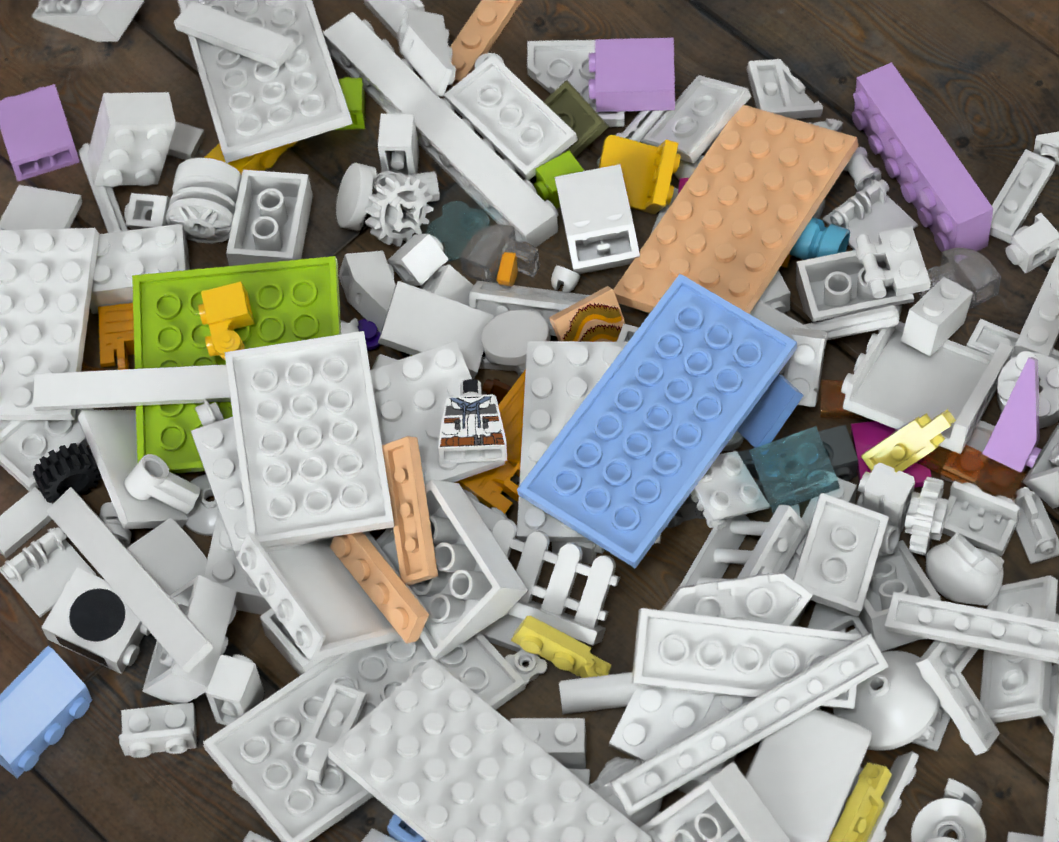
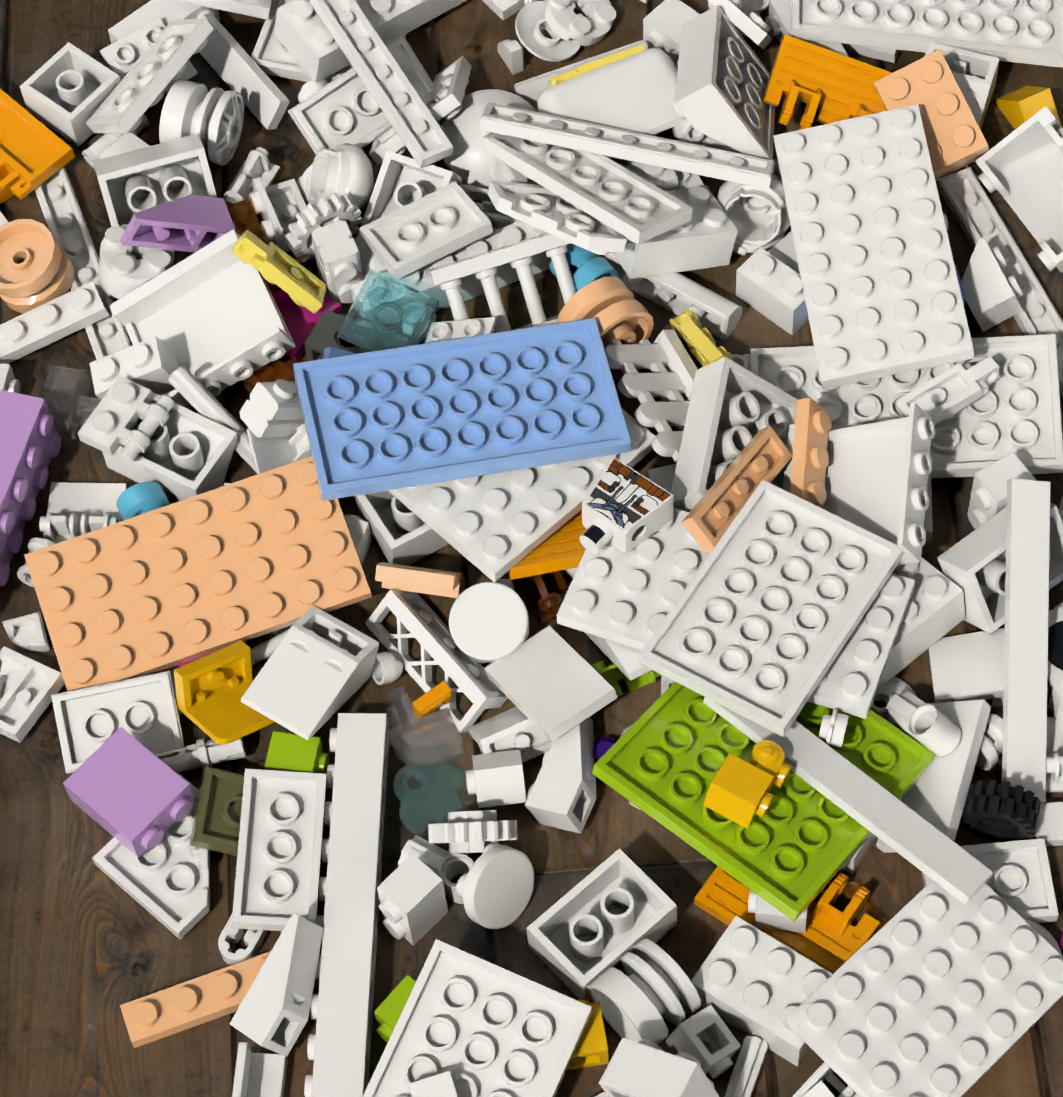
camera: 140 degrees left, 0 degrees up
(634, 593) = (614, 309): none -> light nougat wheel

